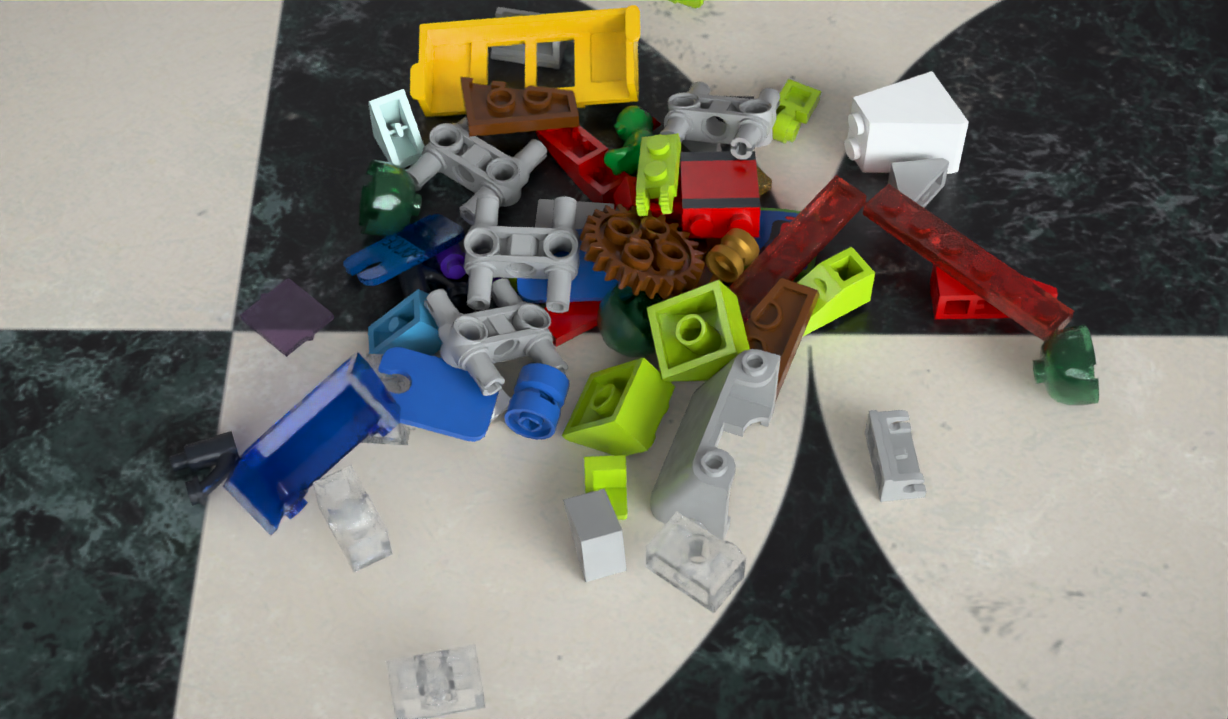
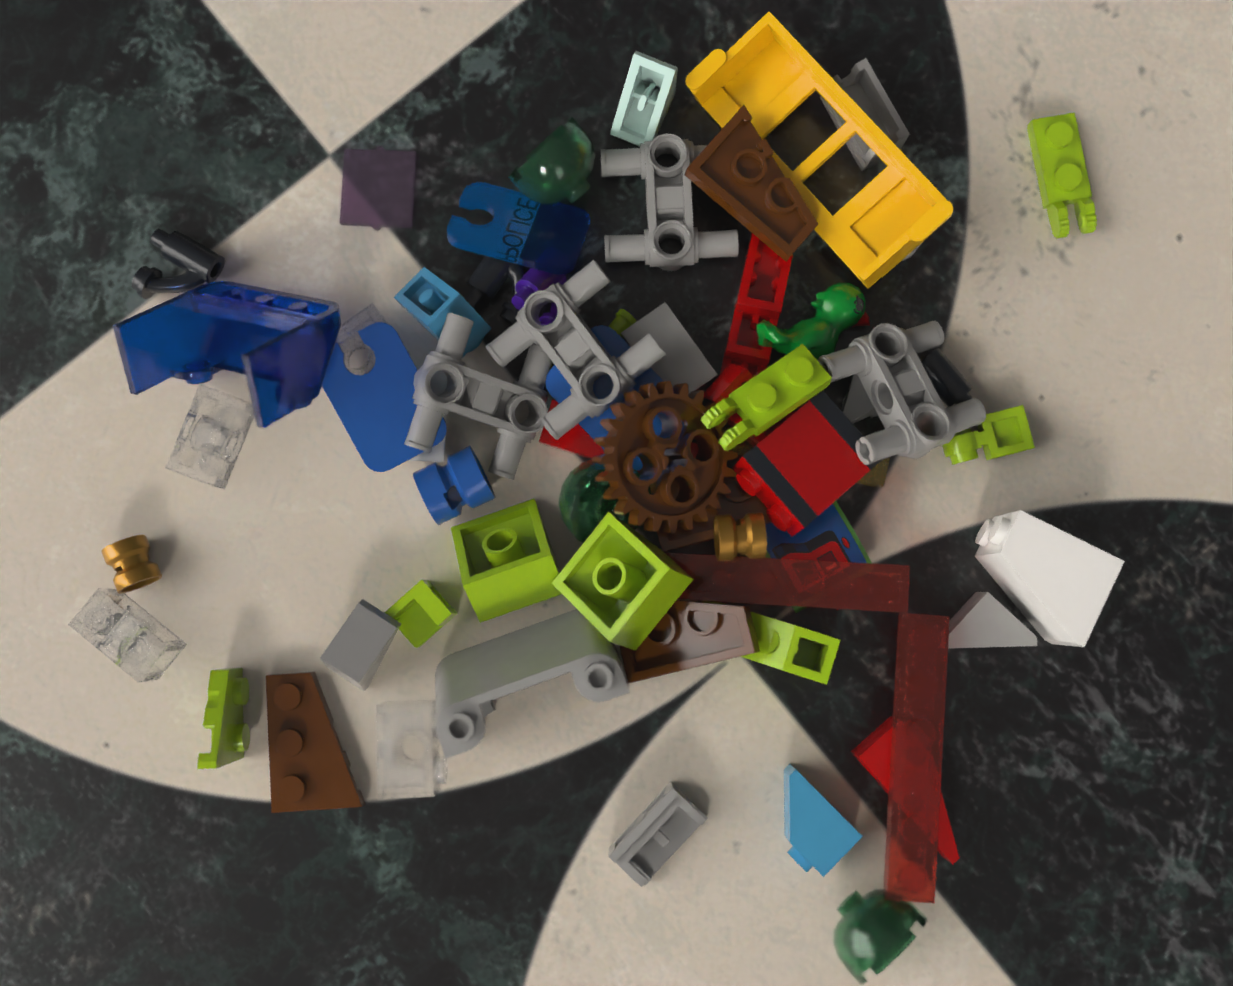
camera: 55 degrees right, 30 degrees up
(380, 644) = (131, 562): none -> pearl gold wheel
(564, 660) = (225, 718): none -> lime wing
(633, 638) = (304, 749): none -> reddish brown wing
(963, 359) = (814, 826): none -> dark azure slope

